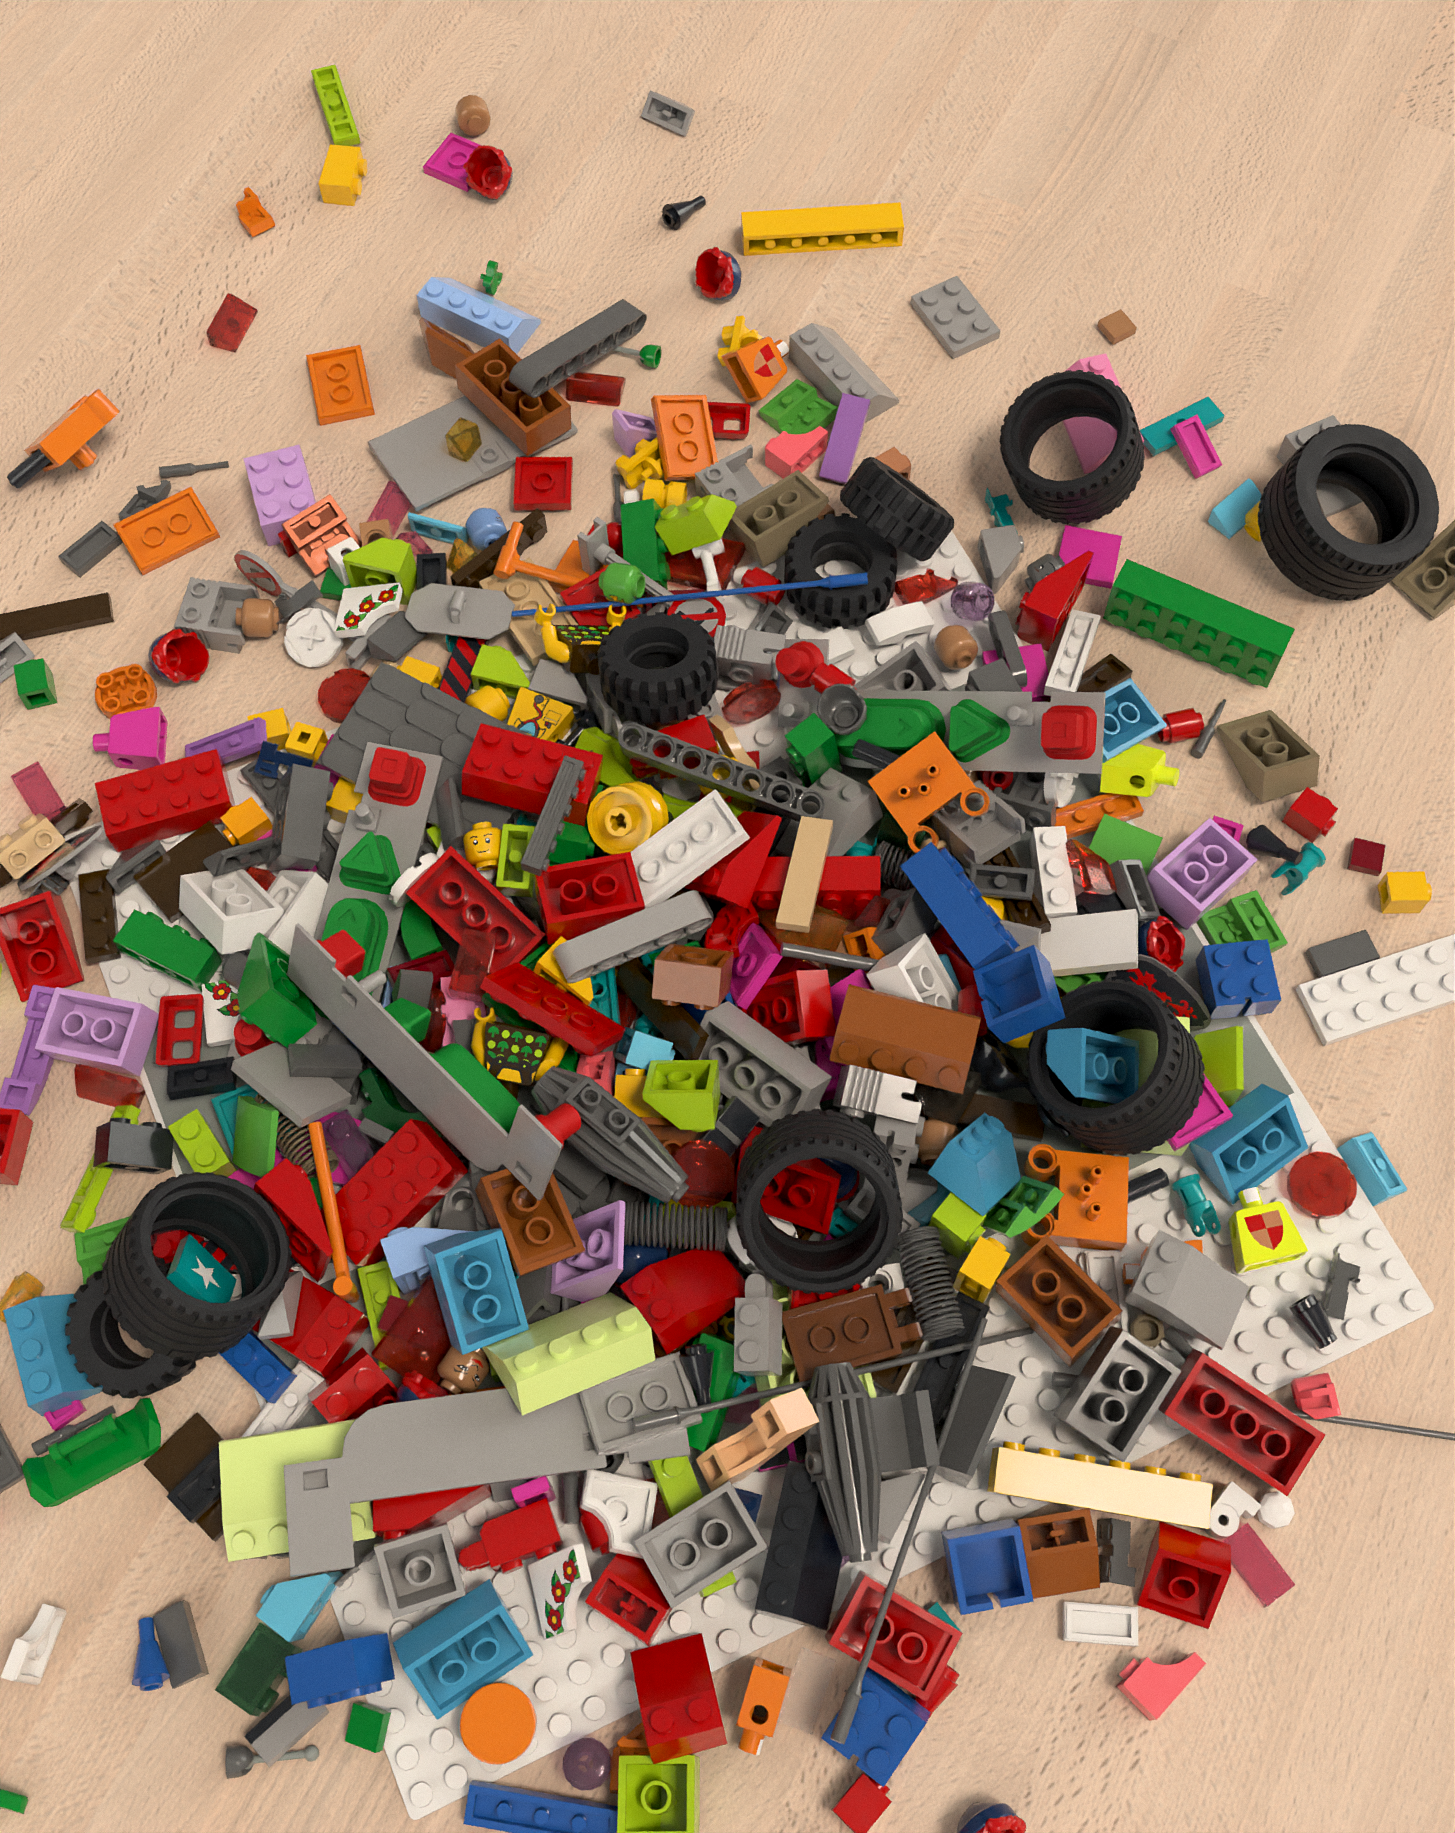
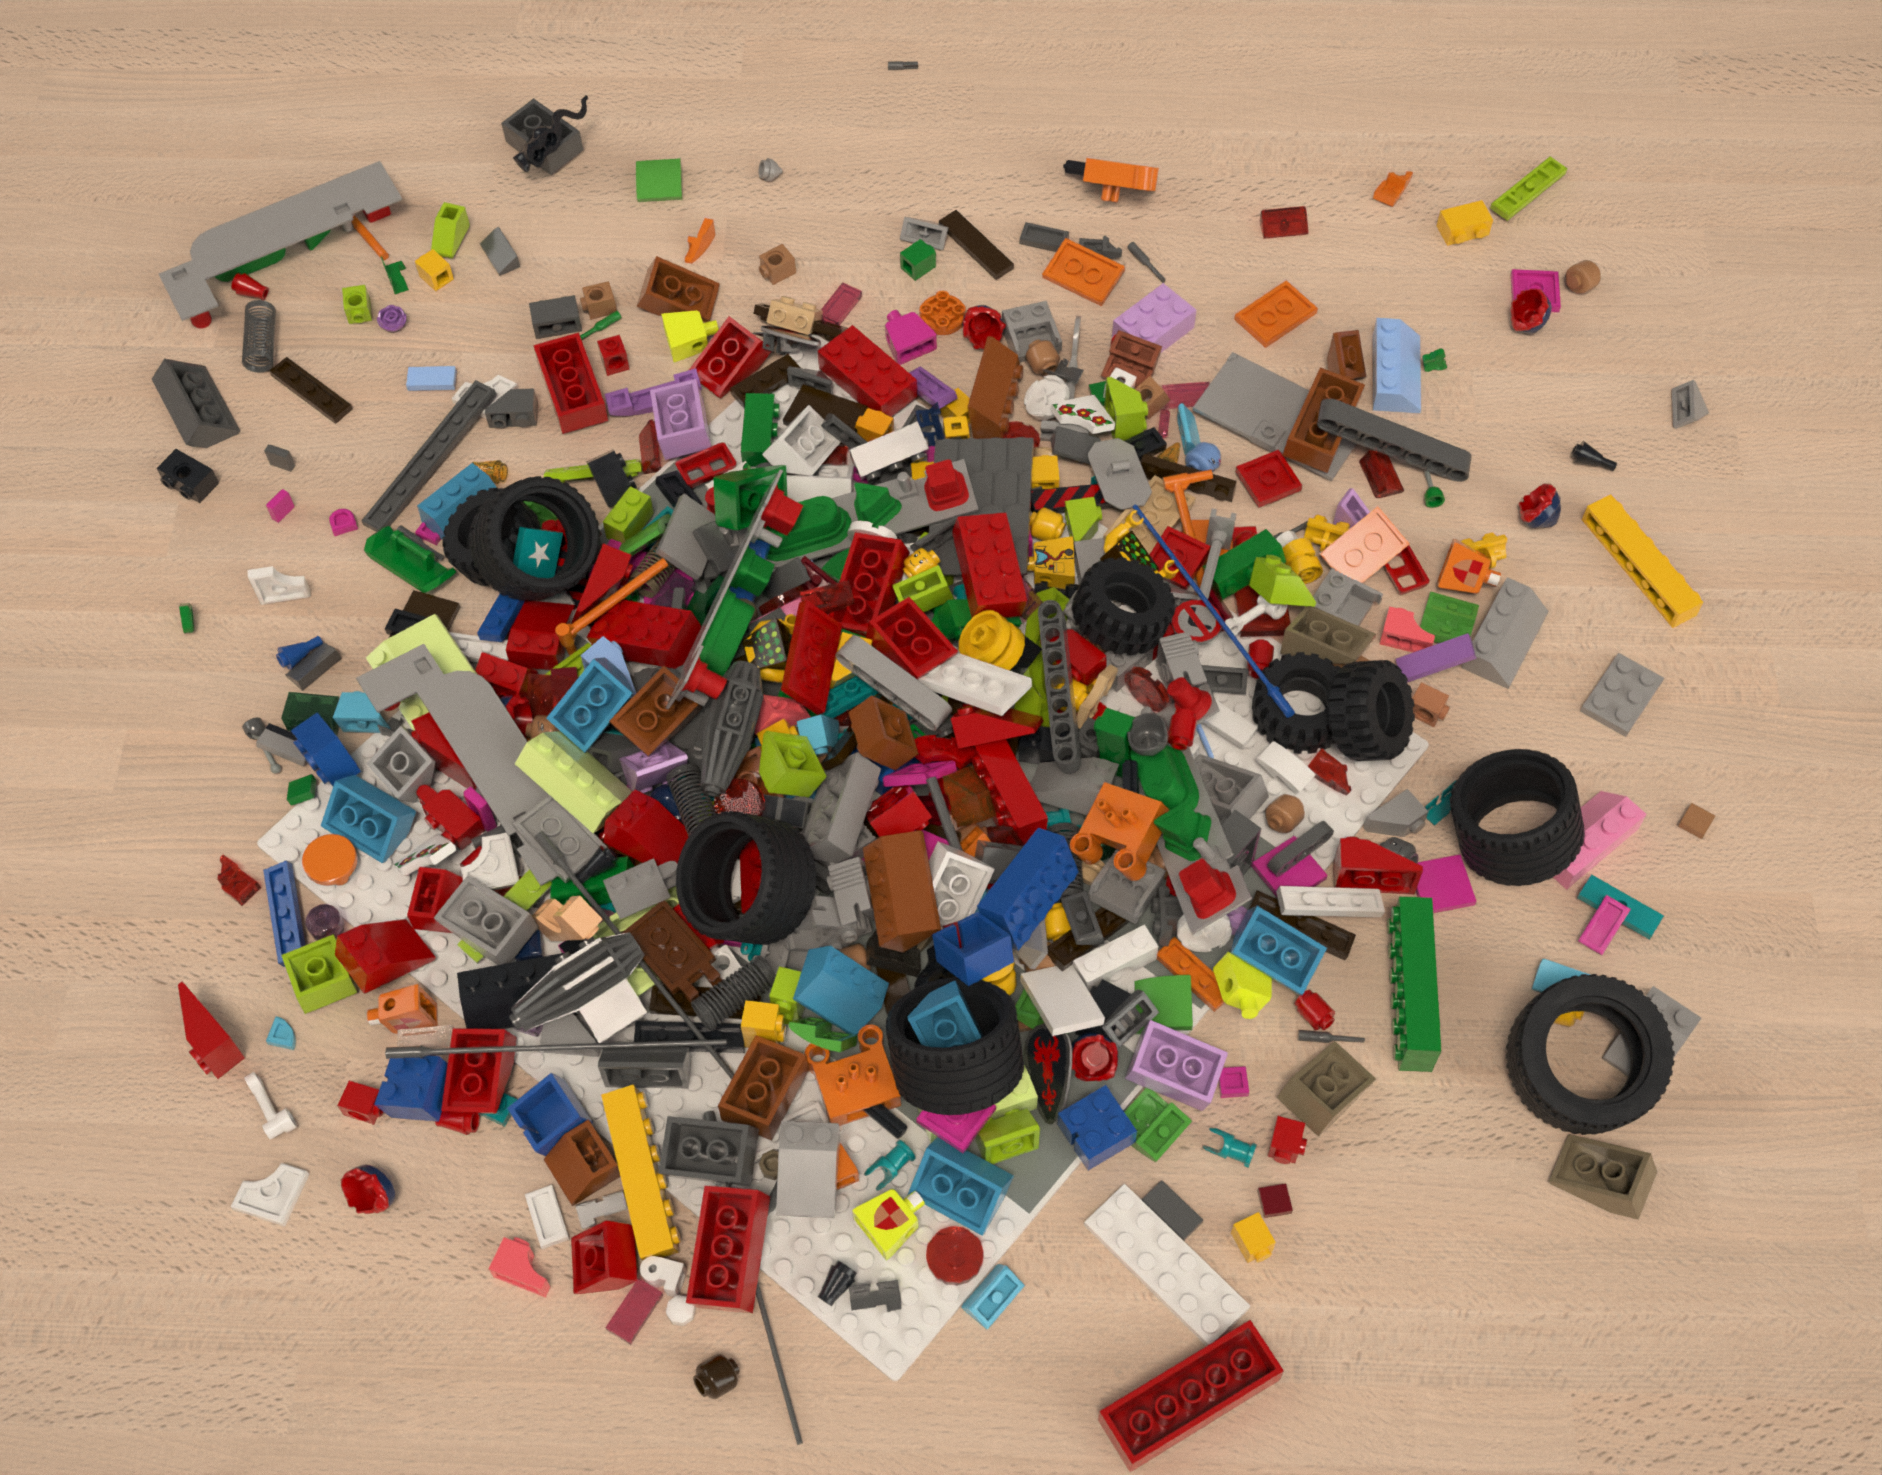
camera: 65 degrees right, 5 degrees down
(278, 682) = (994, 390): none -> dark orange slope
(281, 1315) = (542, 608): light grey slope -> none
(463, 439) = (1266, 407): clear yellow slope -> none
(553, 815) = (952, 585): dark grey piece -> none
(622, 583) = (1193, 557): bright green head -> none
(804, 874) = (1003, 771): tan tile -> none
(972, 601) = (1333, 807): clear purple head -> none
(1094, 870) = (1127, 978): clear red slope -> none
(1266, 843) = (1239, 1112): black cone -> none
(1315, 1396) = (778, 1306): coral piece -> none
(1373, 1499) = (716, 1376): none -> dark brown head

